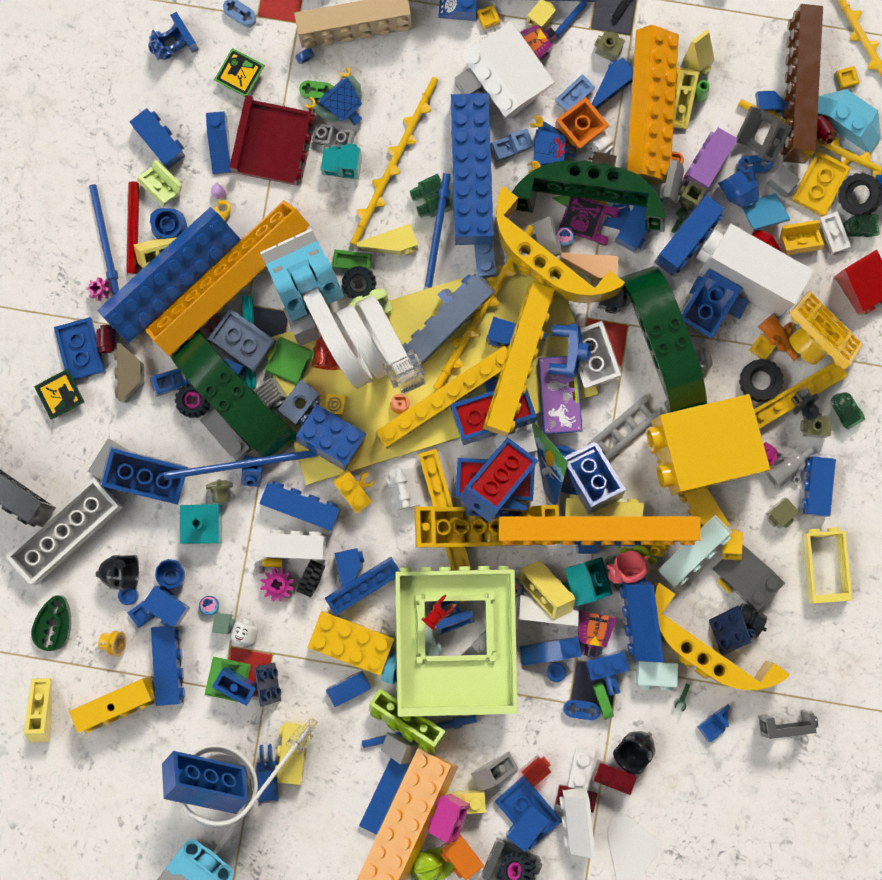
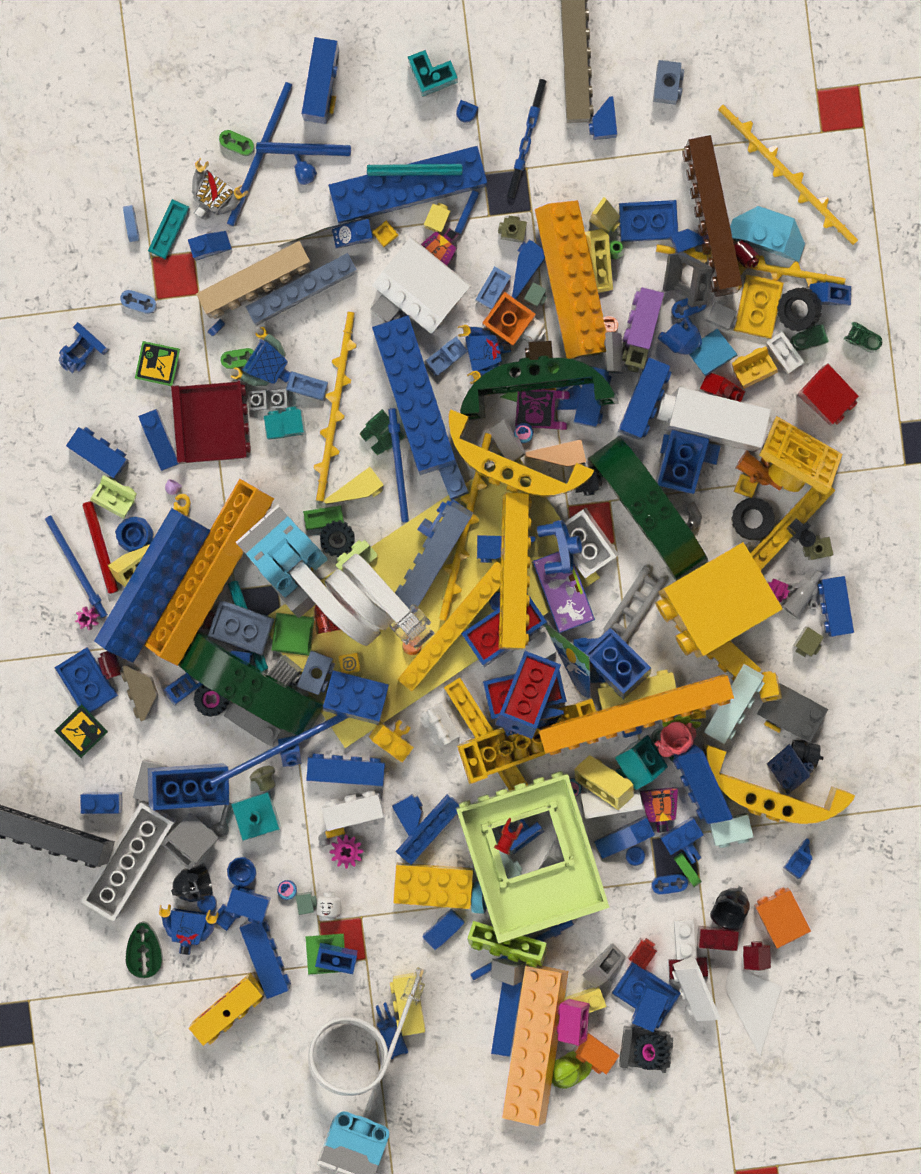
camera: 15 degrees left, 5 degrees up
(39, 711) = (157, 1035): light yellow slope -> none
(56, 468) = (101, 803): none -> blue brick
(101, 612) = (187, 926): none -> blue torso
(113, 643) = (207, 952): yellow piece -> none
(129, 529) = (190, 840): none -> light grey brick
(164, 528) = (221, 828): none -> dark grey bar
(204, 782) = (338, 1056): blue brick -> none
(267, 684) = (366, 947): dark blue hinge -> none
(310, 578) = (376, 836): black tyre -> none
(373, 133) = (306, 386): none -> medium blue plate
(395, 43) = (301, 289): none -> sand blue brick
(613, 112) = (535, 295): none -> sand green plate
(647, 806) = (757, 956): none -> dark red brick
(682, 214) = (631, 376): clear green hand -> none
(682, 698) = (762, 844): clear green hand -> none
(682, 775) = (782, 917): none -> orange brick
(738, 74) = (648, 220): none -> blue tile
(770, 730) = (868, 846): dark grey window -> none
(846, 594) = (875, 709): light yellow window -> none
(847, 77) = (756, 192): yellow tile -> none
(848, 412) = (846, 526): clear green piece -> none

